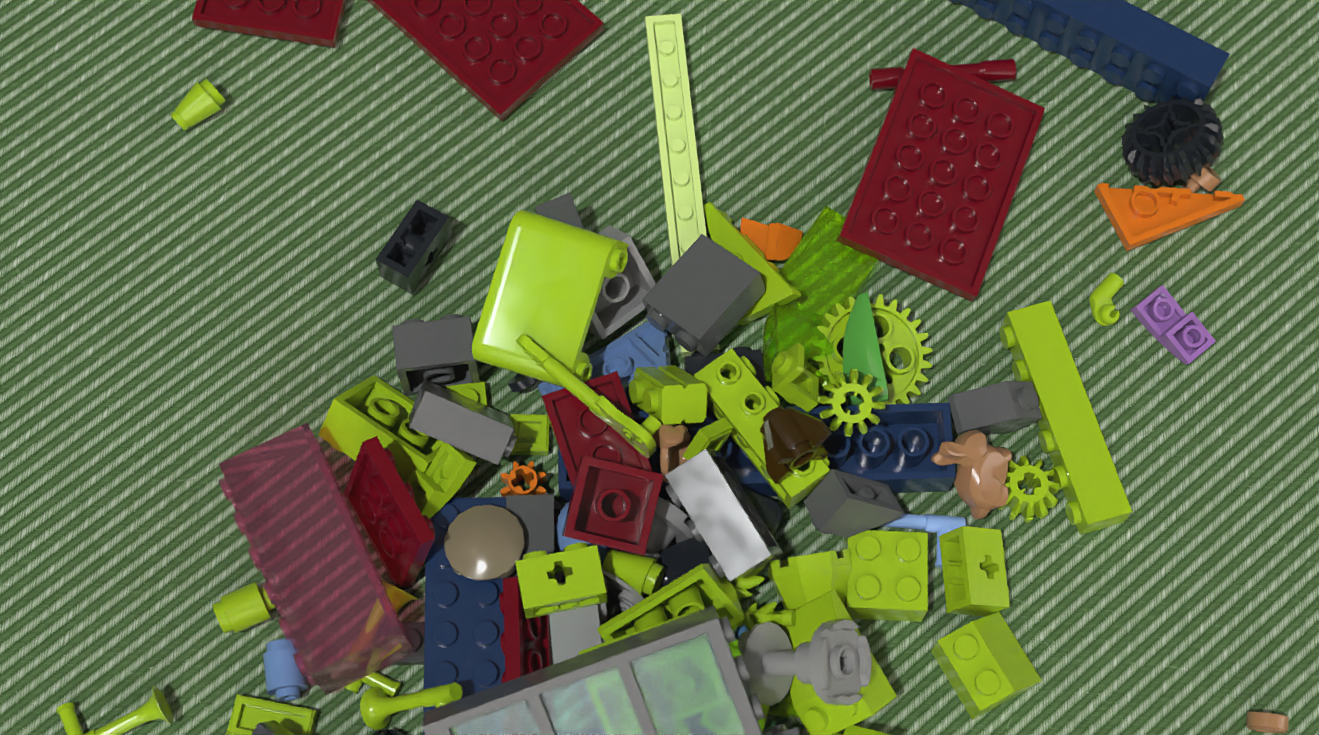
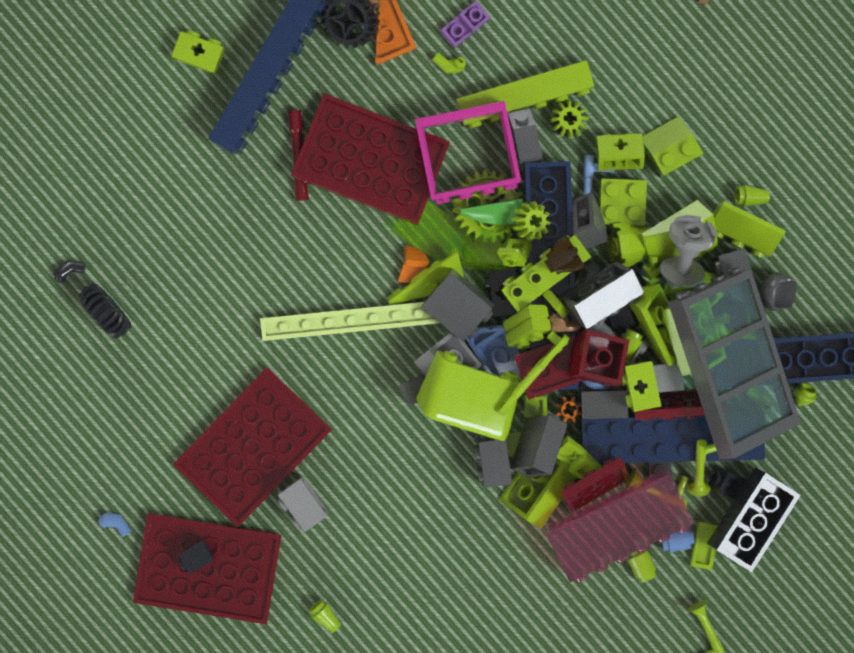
camera: 85 degrees left, 20 degrees up
(381, 65) = (302, 504): none -> light grey brick
(414, 246) = (423, 478): black brick -> none
(484, 543) = (613, 430): dark tan dish -> none
(979, 473) = (565, 146): medium nougat animal -> none
(1033, 331) = (463, 115): none -> dark pink window

